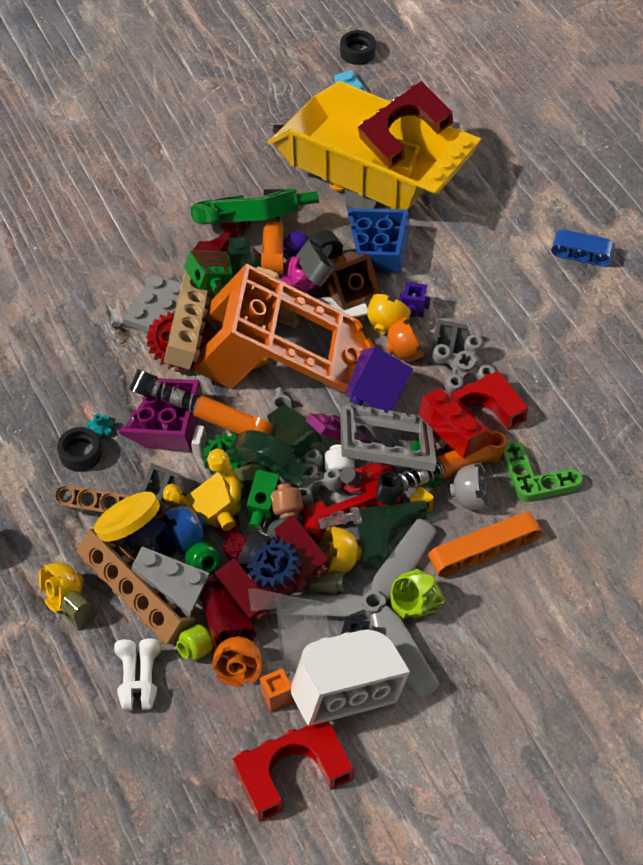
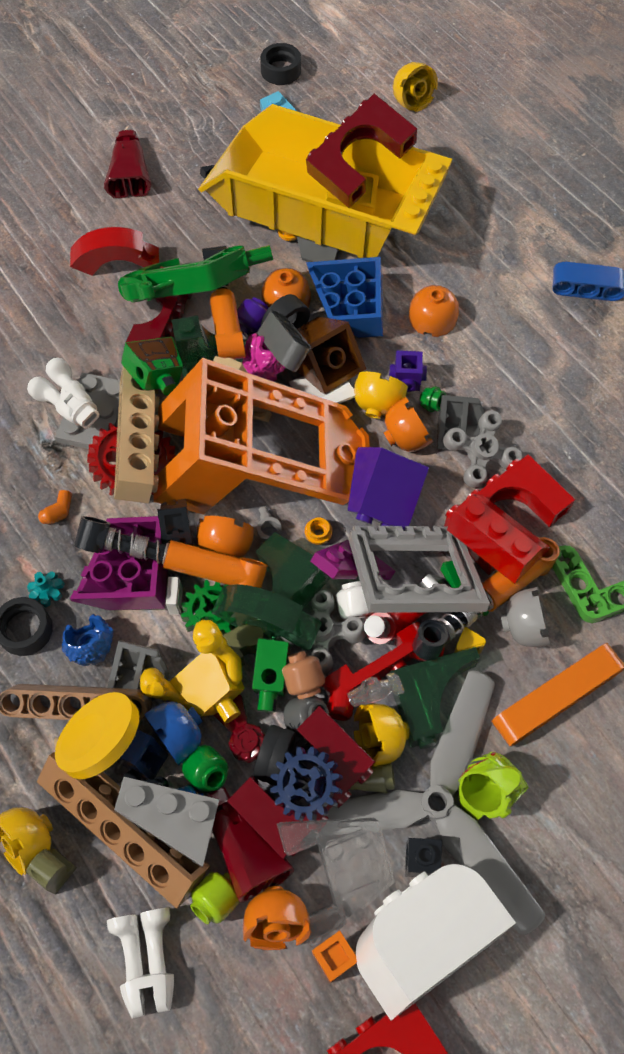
camera: 10 degrees left, 10 degrees up
(117, 373) = (57, 511): none -> orange arm
(128, 466) = (89, 643): none -> blue hair
(142, 293) = (72, 402): none -> white piece
(190, 178) = (109, 245): none -> red arch
(207, 384) = (175, 522): none -> black hinge
(213, 119) = (127, 166): none -> dark red piece
(244, 399) = (224, 536): none -> orange cylinder
(320, 405) = (318, 524): none -> light orange plate
(328, 221) = (285, 282): none -> orange cylinder
(429, 323) = (431, 398): none -> green plate
(447, 257) = (434, 311): none -> orange cylinder
(468, 76) = (415, 85): none -> yellow cylinder

